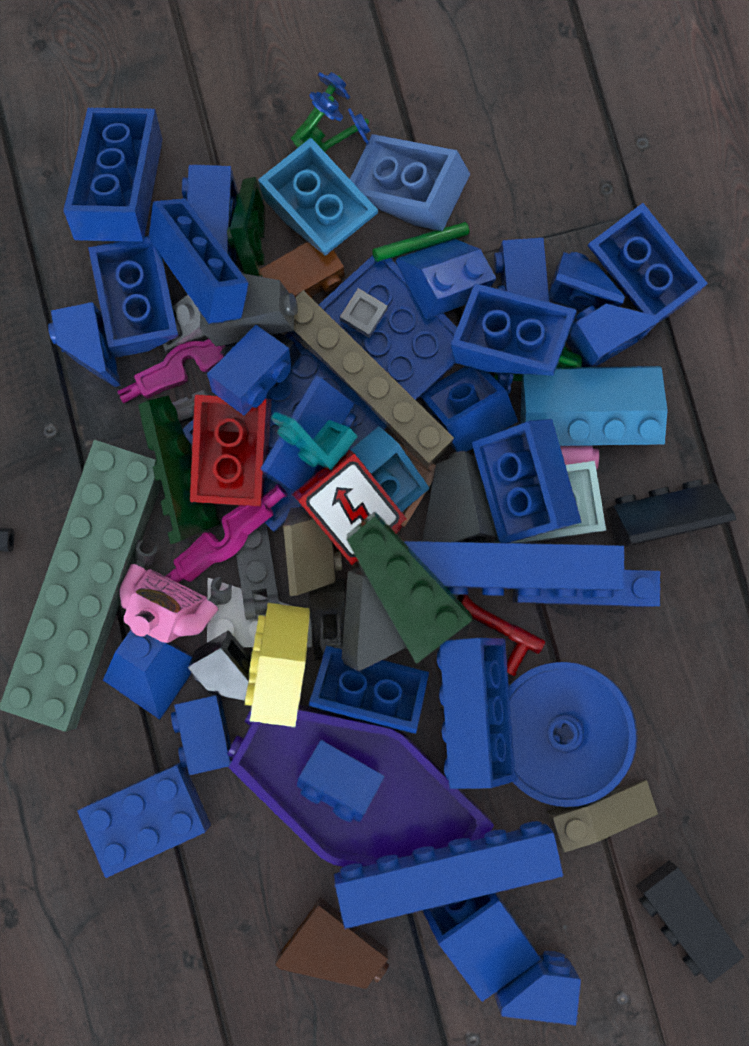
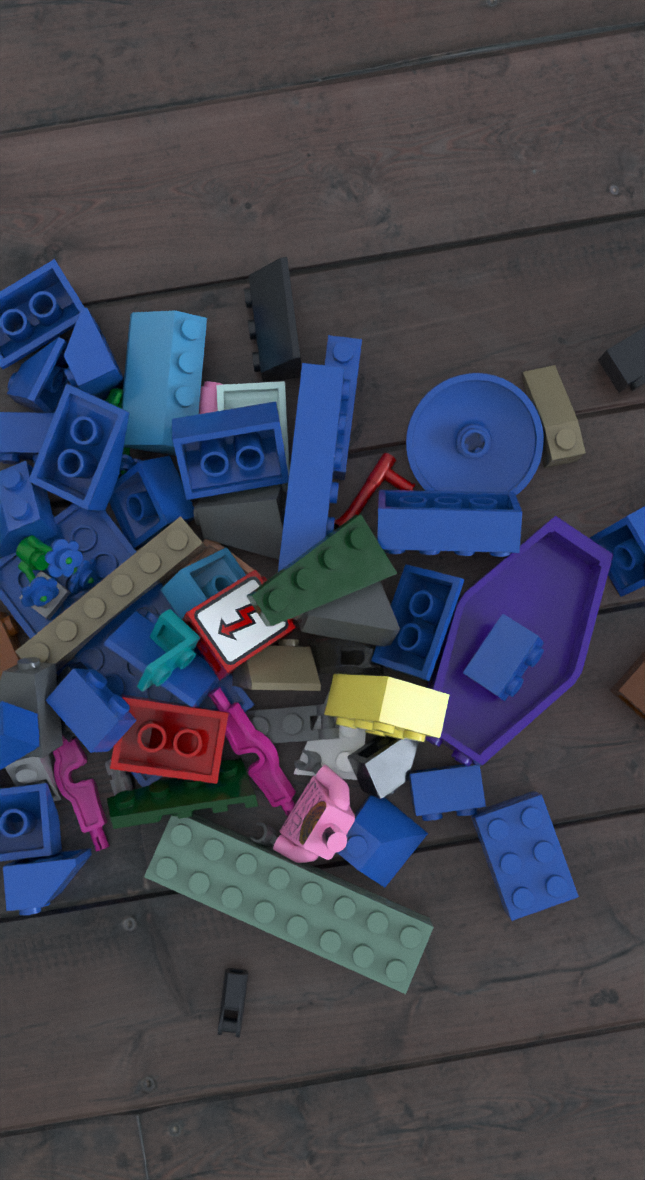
camera: 80 degrees left, 0 degrees up
(396, 326) = (60, 560): none -> blue plant
(447, 874) = (599, 563): blue brick -> none

